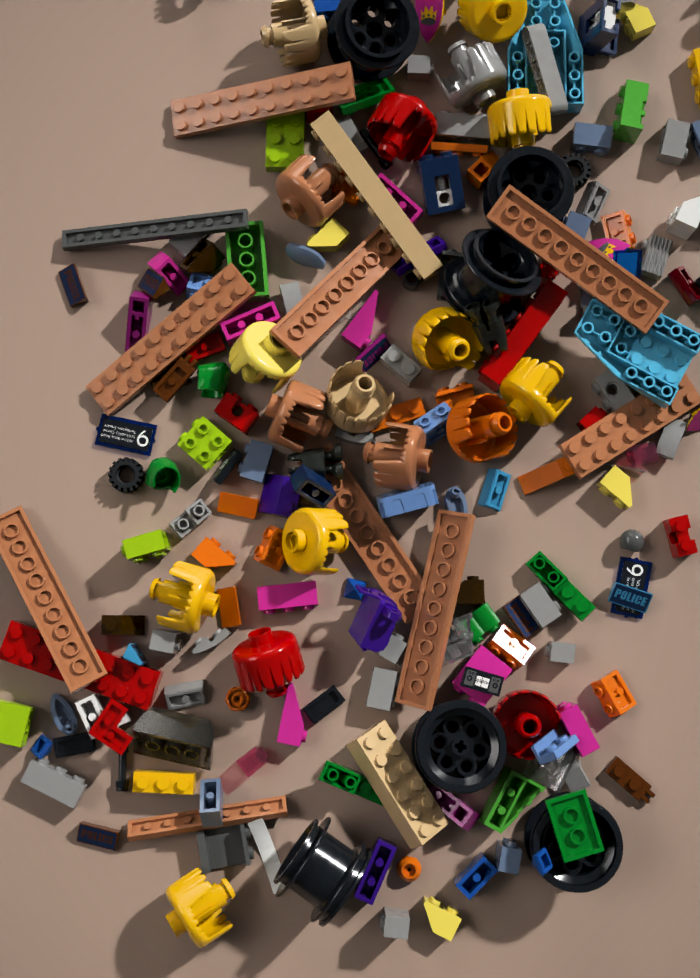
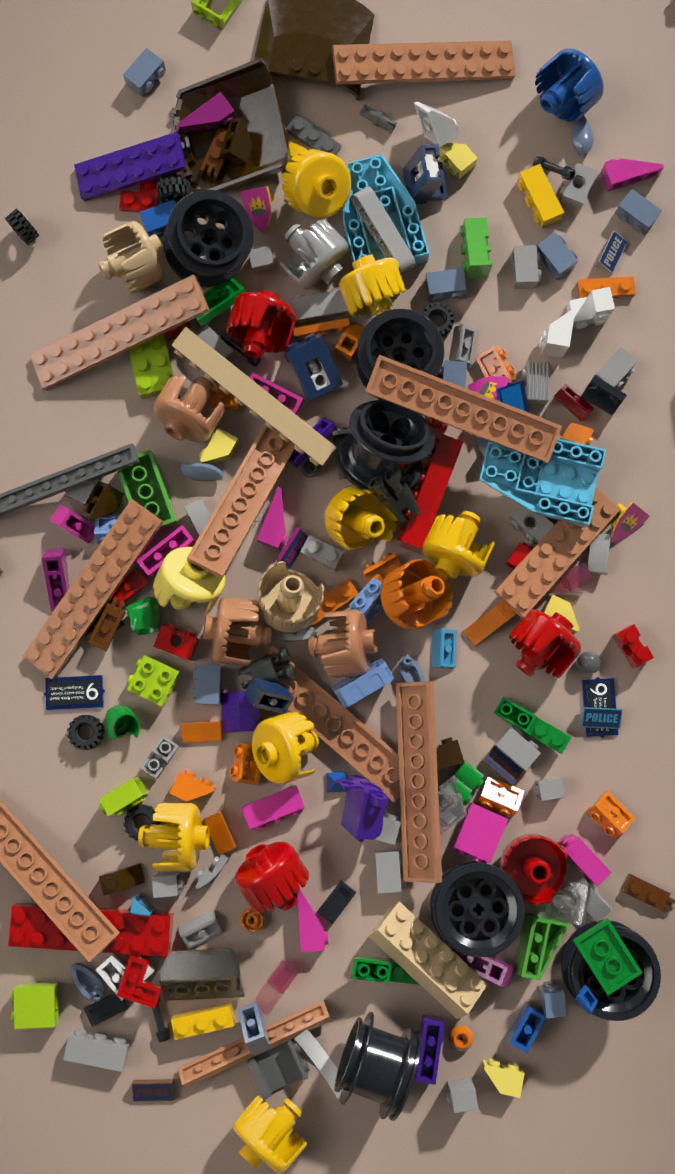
camera: 15 degrees left, 0 degrees up
(42, 747) = (75, 1019): blue slope -> none
(149, 567) = (132, 814): none -> black tyre
(153, 284) = (61, 539): slope -> none
(227, 466) = (180, 697): black tile -> none
(482, 681) = (482, 838): tile -> none
(553, 746) = (566, 884): medium blue bracket -> none
(597, 509) = (545, 642): none -> red piece
(683, 315) = (578, 434): none -> orange slope

